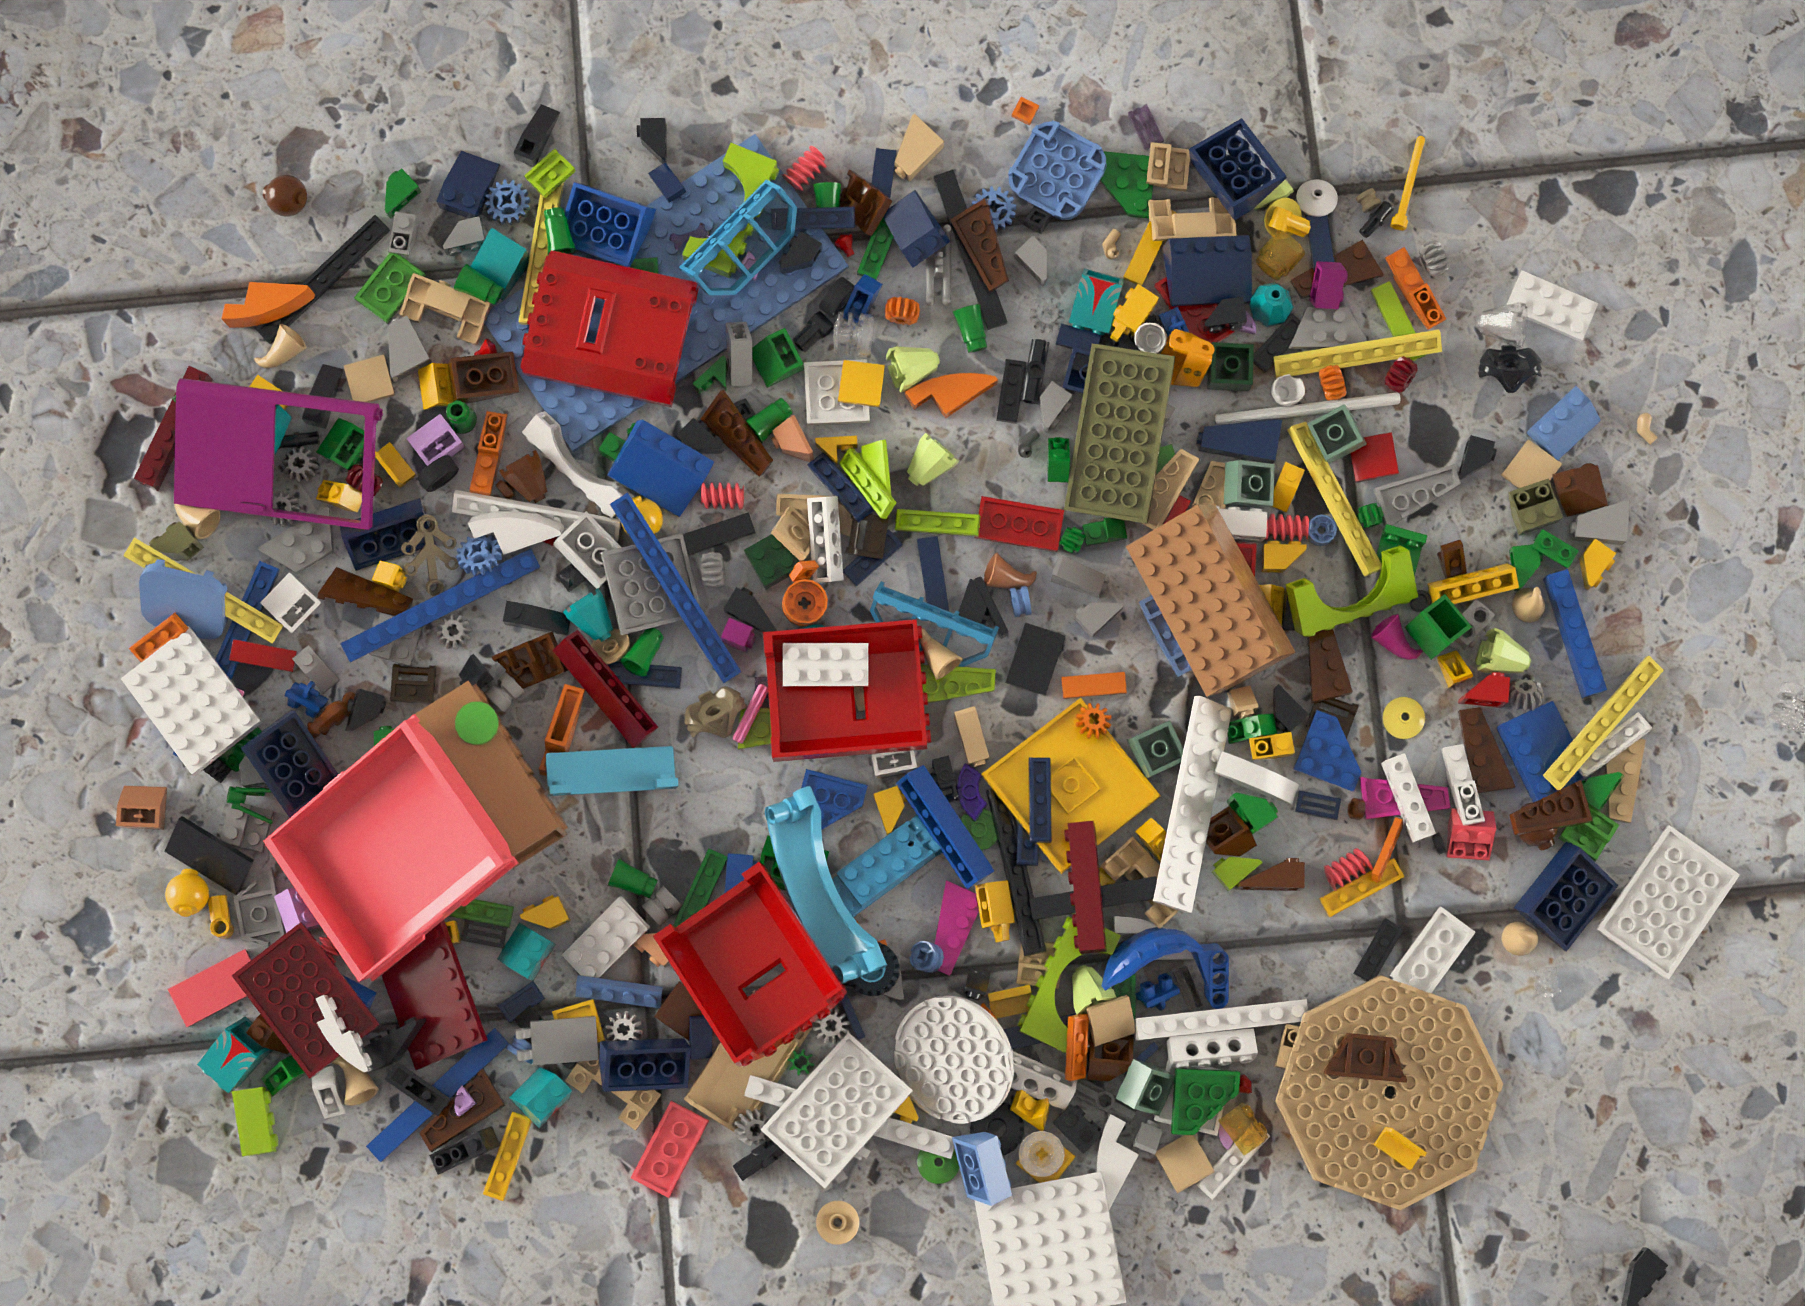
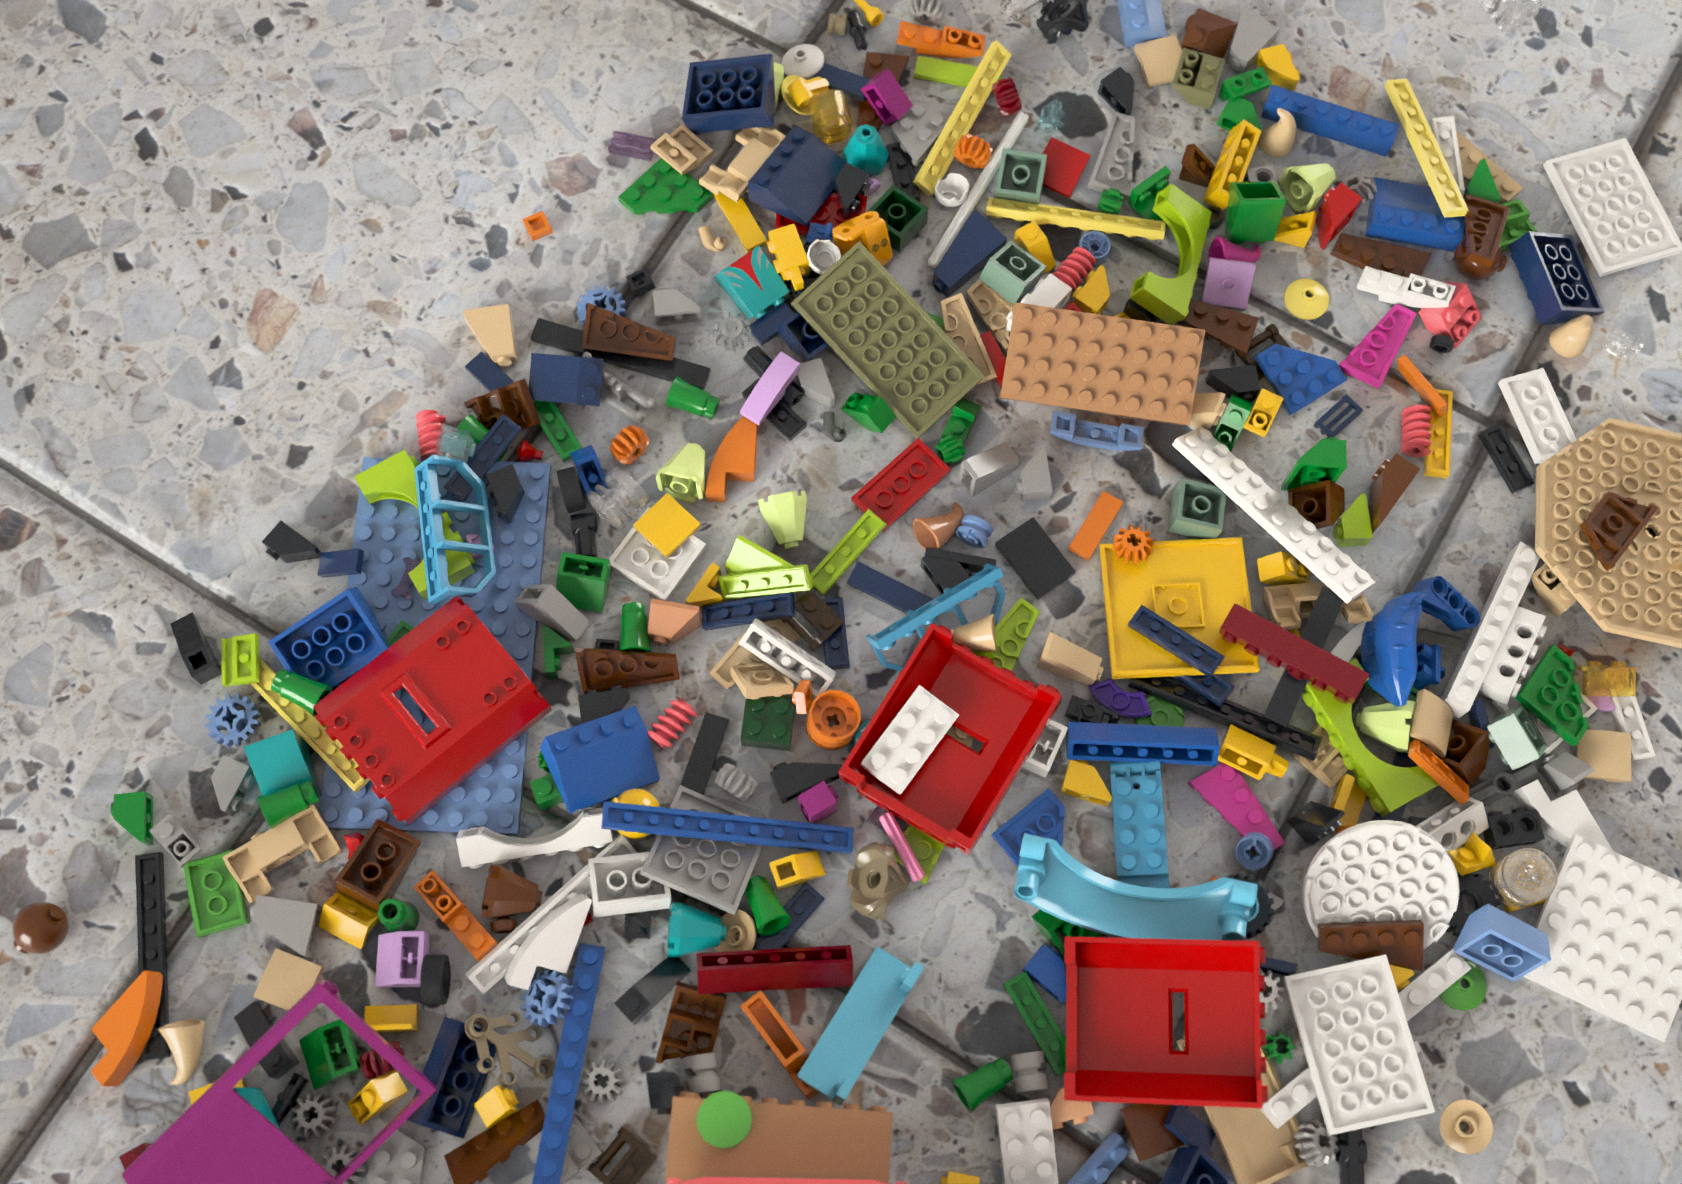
camera: 55 degrees left, 10 degrees down
(467, 185) = (185, 747): dark blue slope -> none
(683, 654) = (796, 869): none -> yellow slope
(805, 193) = (455, 443): none -> clear light blue brick
(929, 1092) = (1363, 940): none -> reddish brown wing
(1017, 377) = (770, 388): none -> lavender slope
(1057, 170) = (611, 235): medium blue tile -> none
(1256, 778) = (1281, 447): white slope -> none
(1356, 809) = (1365, 387): reddish brown tile -> none
(1365, 649) = (1228, 283): none -> lavender plate
(1408, 798) = (1389, 335): white brick -> none
(1413, 418) = (1051, 114): none -> clear light blue tile

